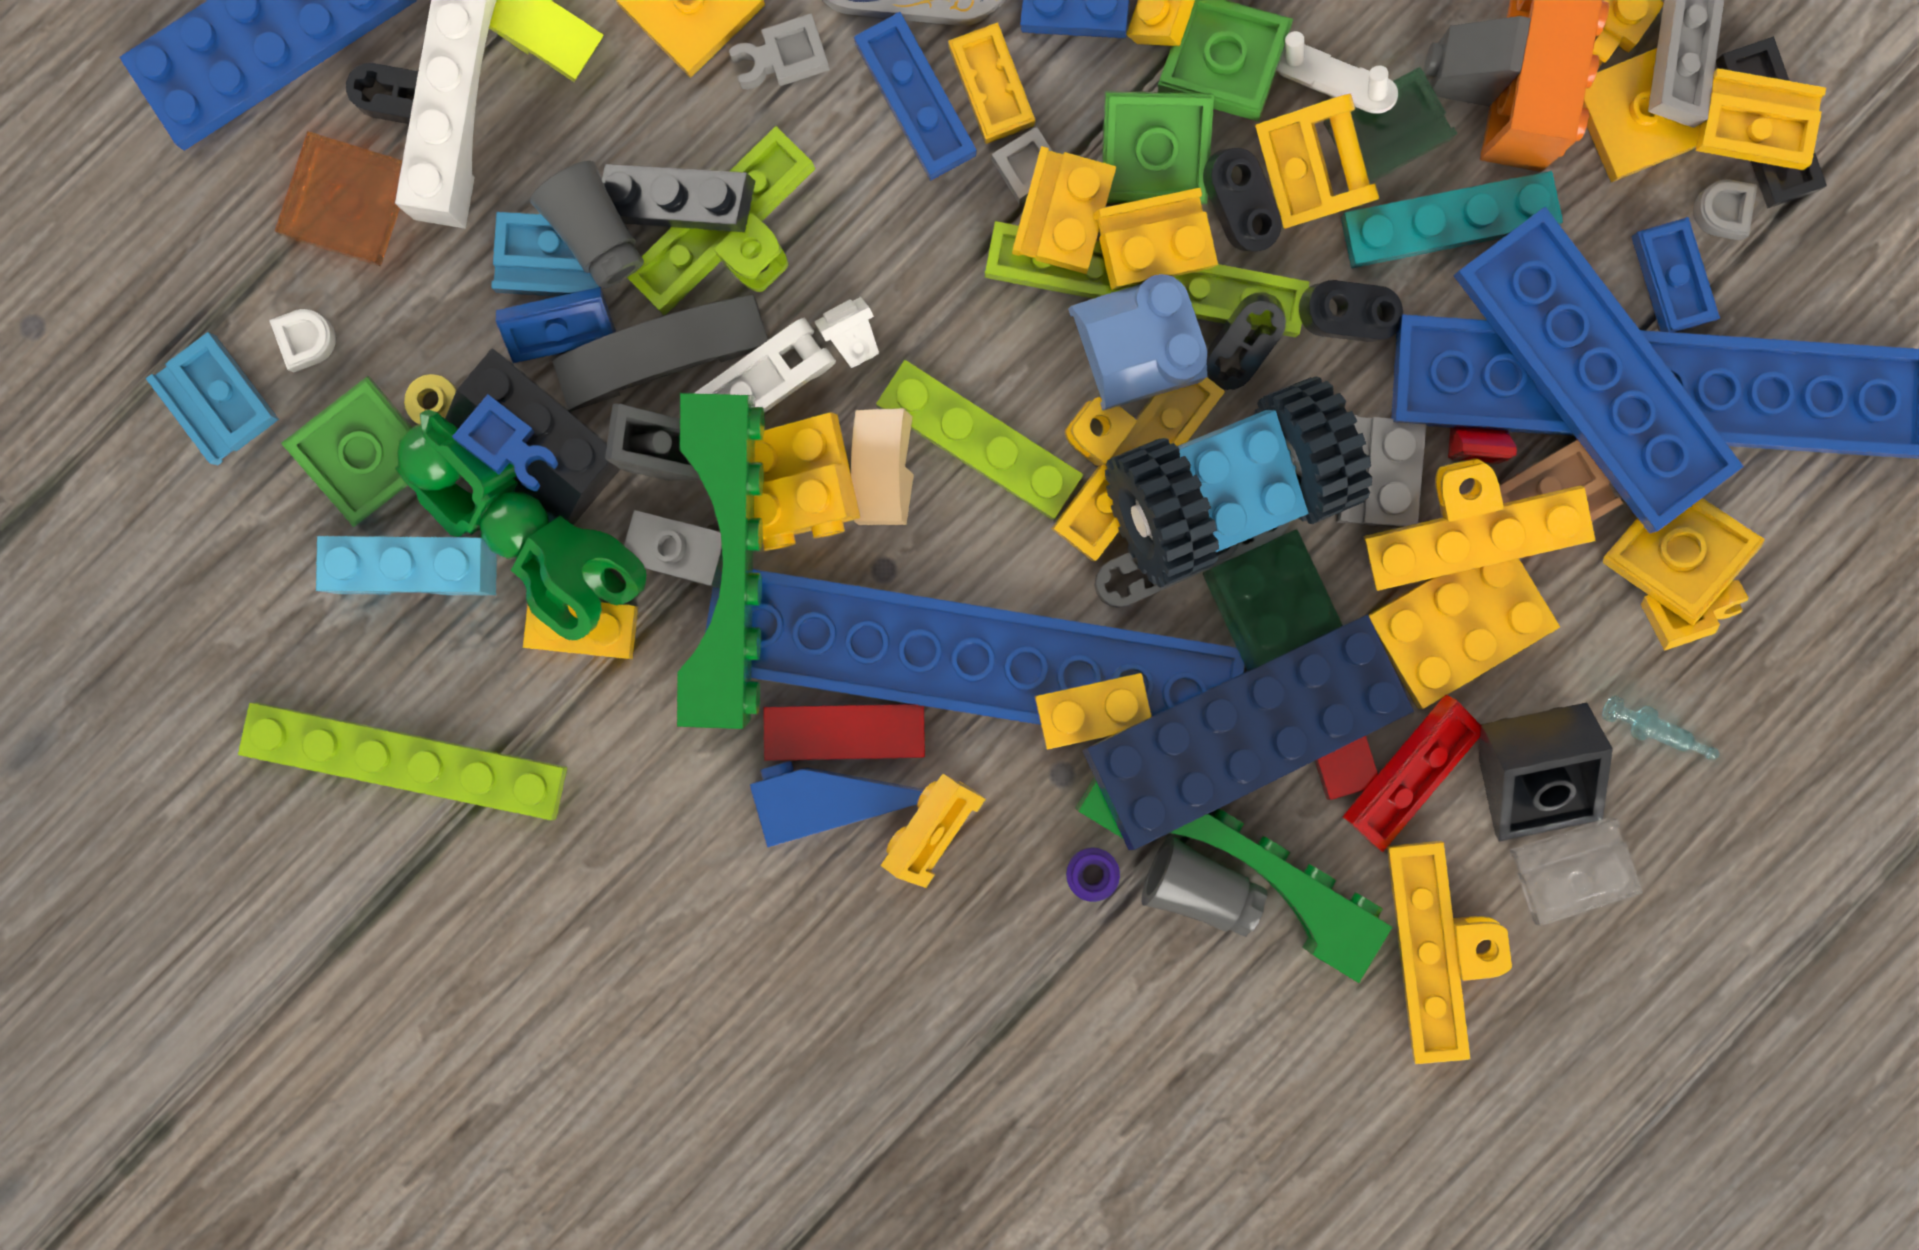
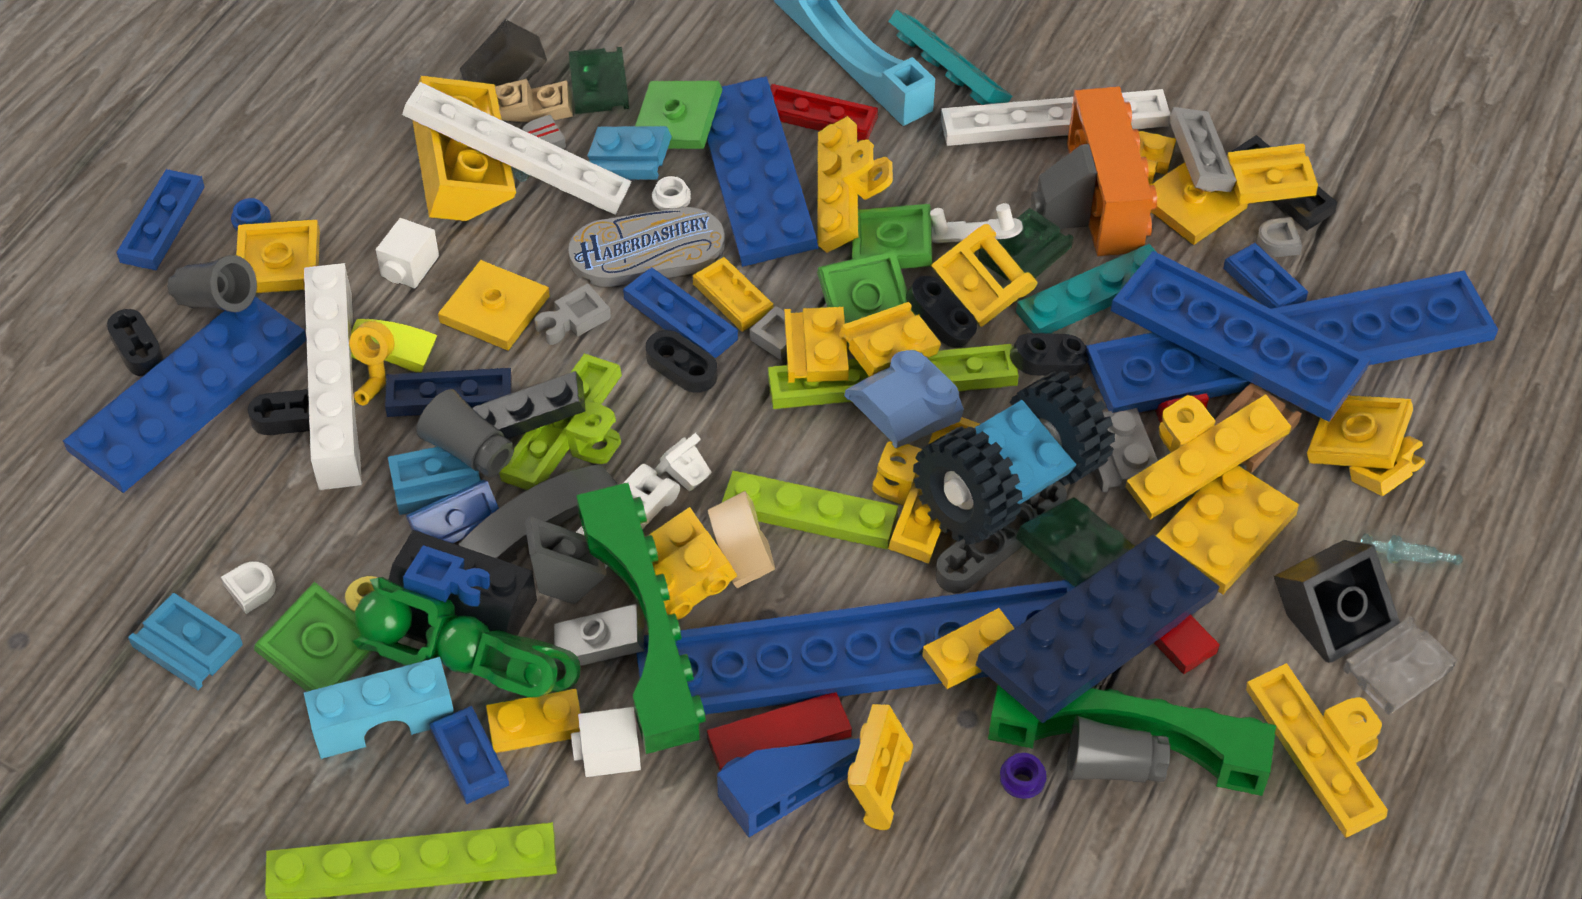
camera: 20 degrees left, 35 degrees down
(341, 199) = (261, 487): clear orange tile -> none
(494, 651) = (469, 754): none -> blue plate
(514, 42) = (373, 356): none -> yellow plate
(595, 128) = (411, 392): none -> dark blue plate
(643, 690) = (607, 742): none -> white brick
(894, 174) = (684, 363): none -> black plate
(1254, 348) = (990, 391): black beam -> none
(1414, 773) = (1240, 630): red tile -> none

